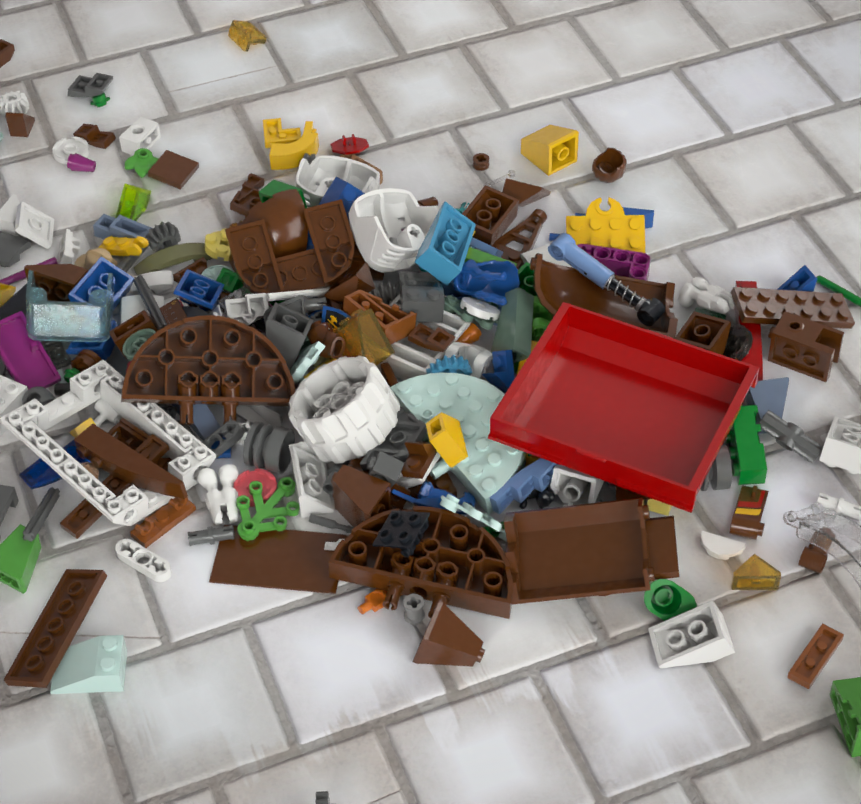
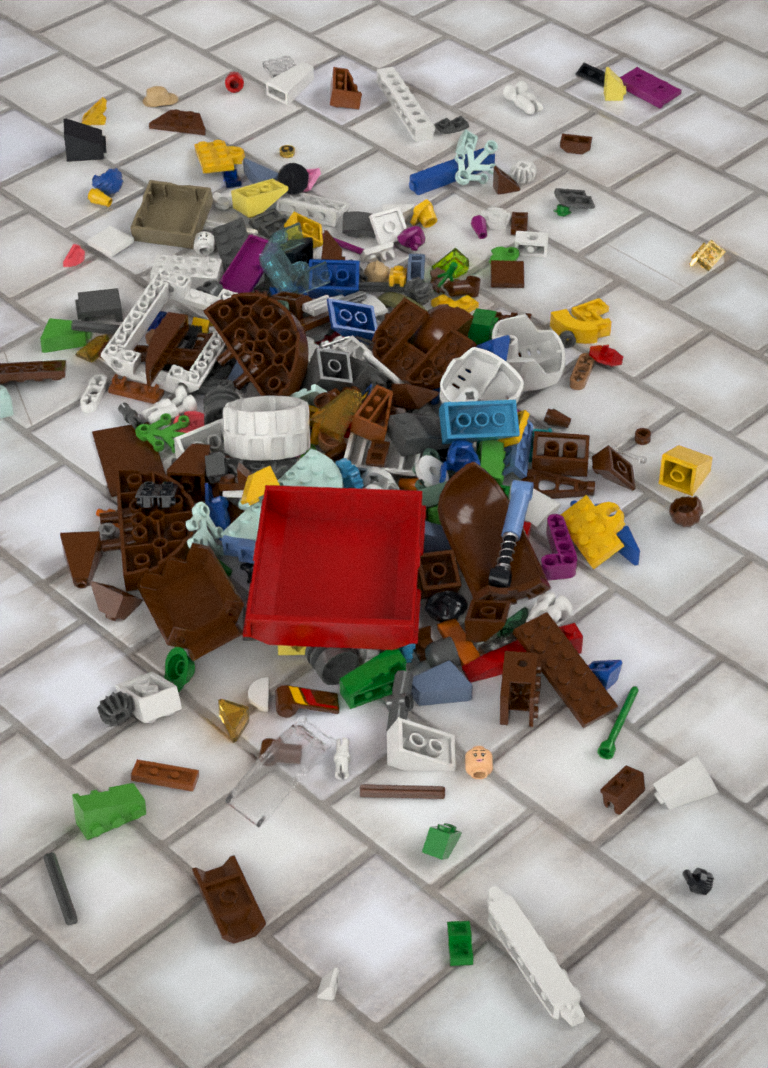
camera: 65 degrees right, 5 degrees down
(32, 193) = (425, 214): none -> yellow piece
(55, 540) = (91, 349): none -> clear yellow slope
(65, 213) = (412, 237): none -> magenta piece
(147, 303) = (316, 306): none -> white tile
(160, 214) = (440, 276): none -> plant
(179, 202) = (464, 287): none -> reddish brown piece
(198, 225) = (466, 302): none -> yellow plate
(531, 627) = (114, 601): none -> reddish brown slope
(710, 669) = (115, 708): none -> dark grey gear

